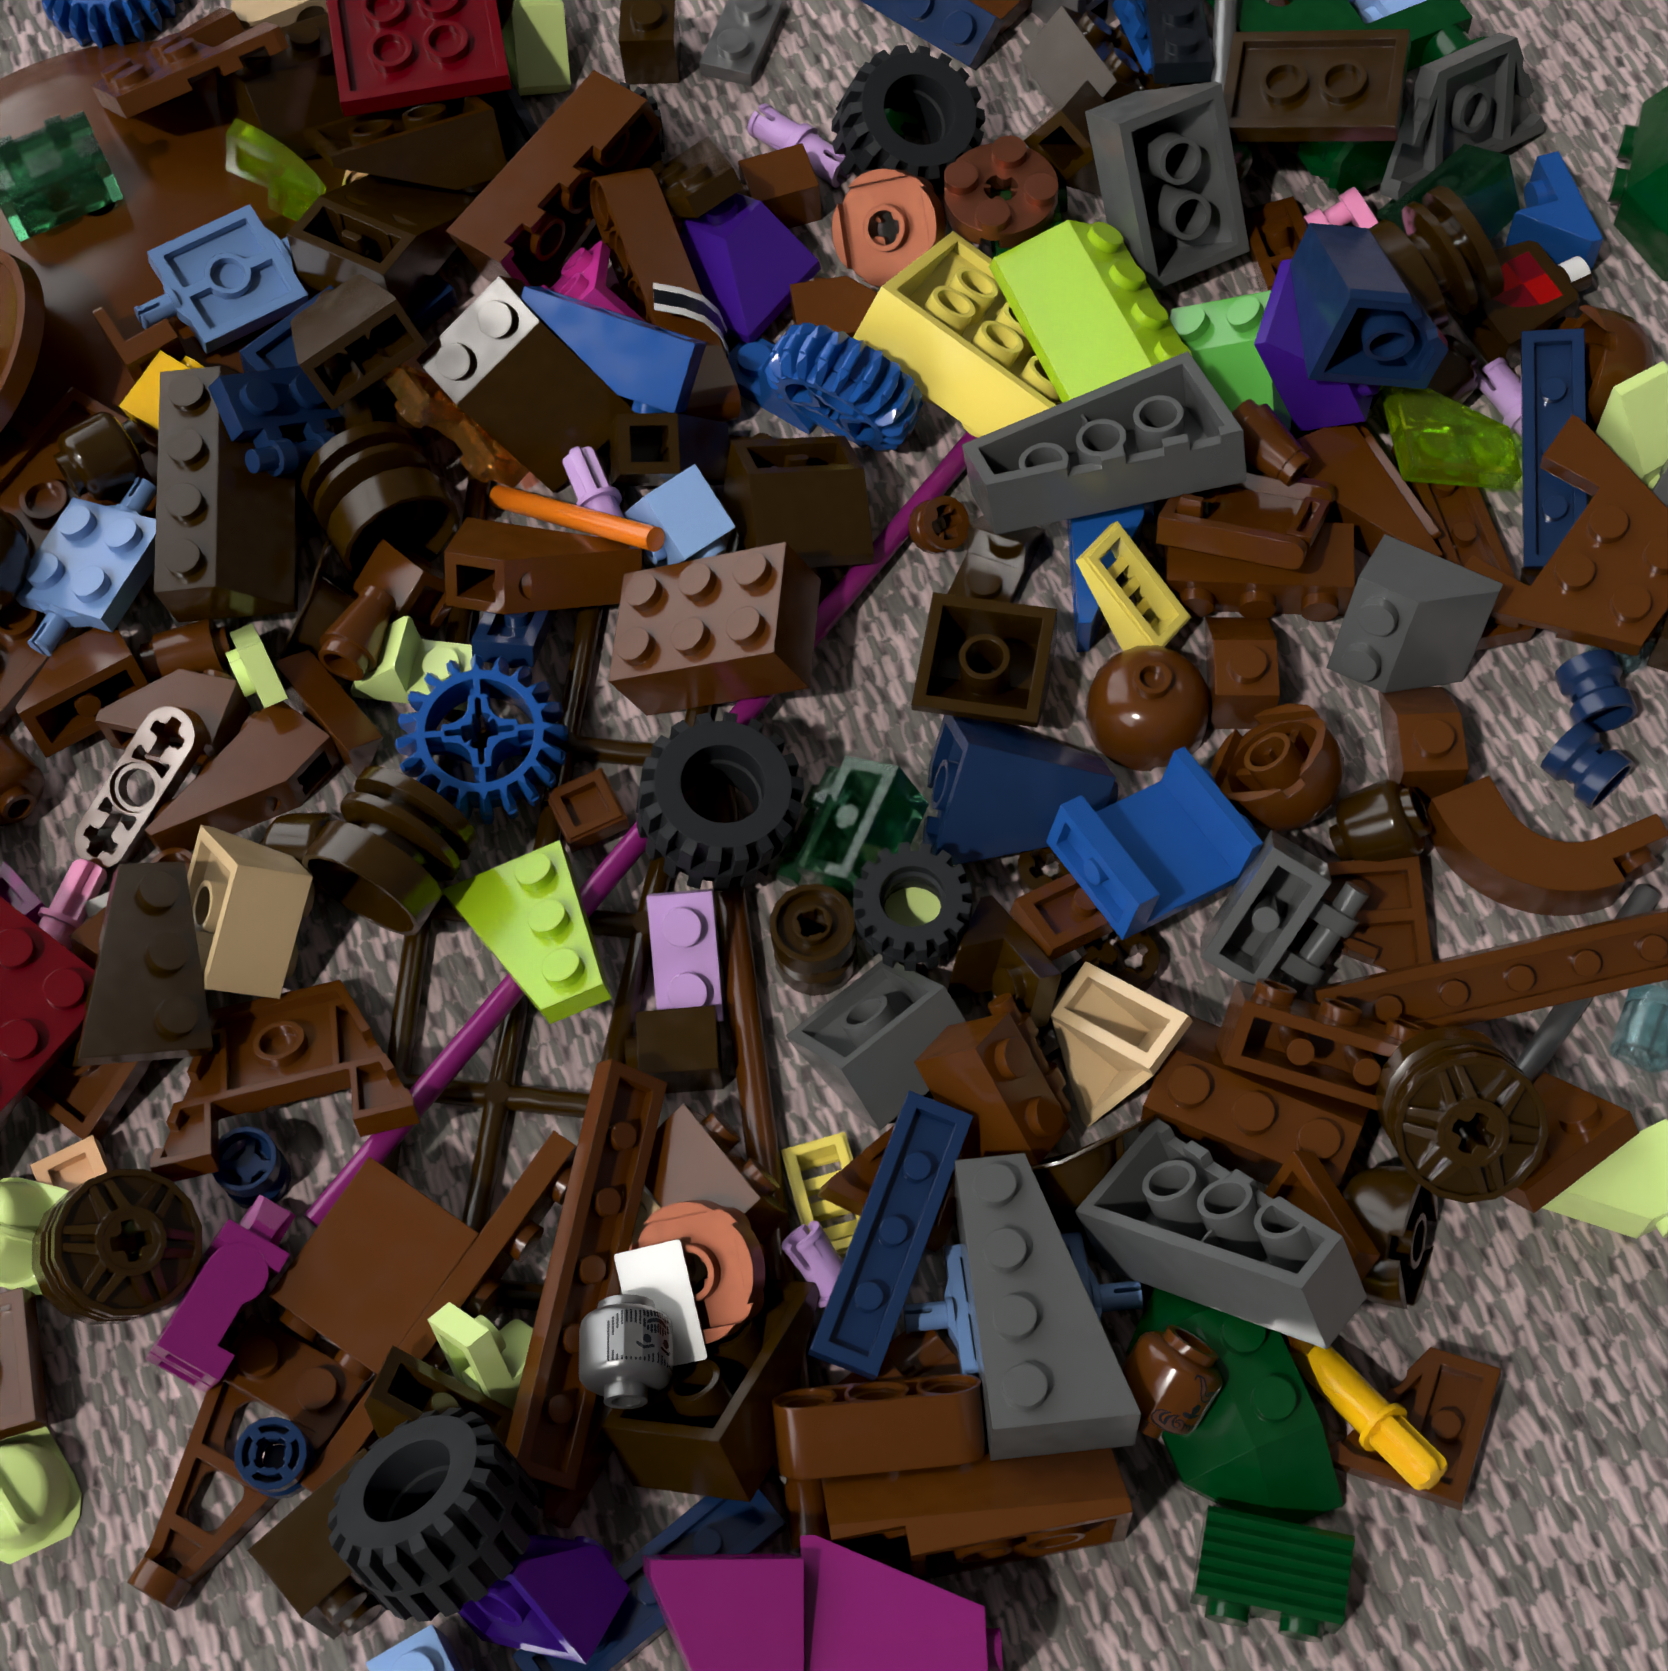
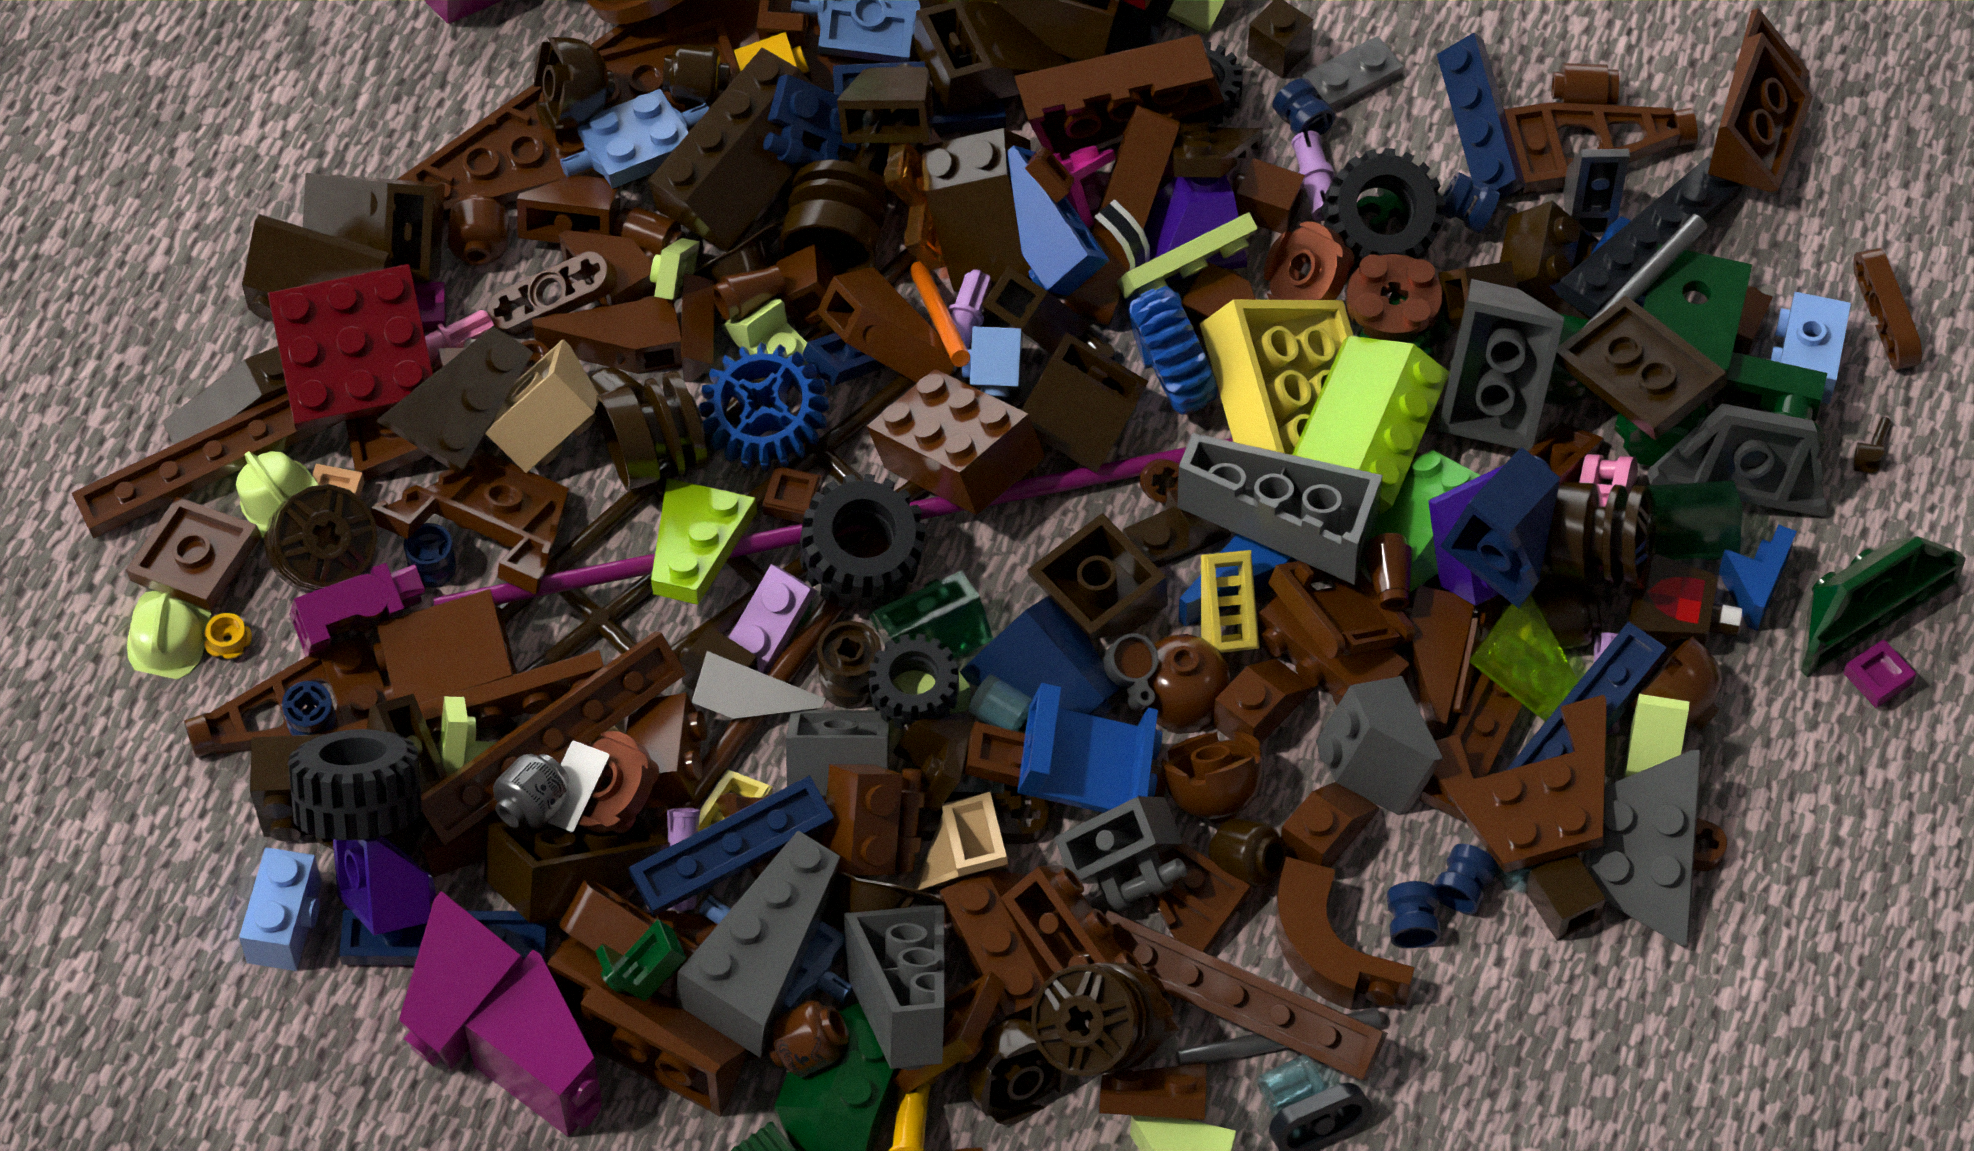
camera: 35 degrees right, 5 degrees down
(77, 1430) = (224, 625): none -> yellow plate
(583, 291) = (1050, 174): none -> reddish brown tile
(732, 91) = (1300, 106): none -> dark blue wheel
(734, 1054) = (746, 692): none -> white sticker
(775, 290) = (1189, 257): none -> yellowish green plate
(938, 1448) = (645, 964): none -> dark green bracket
(983, 62) = (1469, 202): none -> dark blue wheel
(1013, 863) = (1000, 704): none -> clear light blue piece
(1101, 723) = (1129, 665): none -> piece
(1530, 44) = (1868, 456): none -> dark brown hand

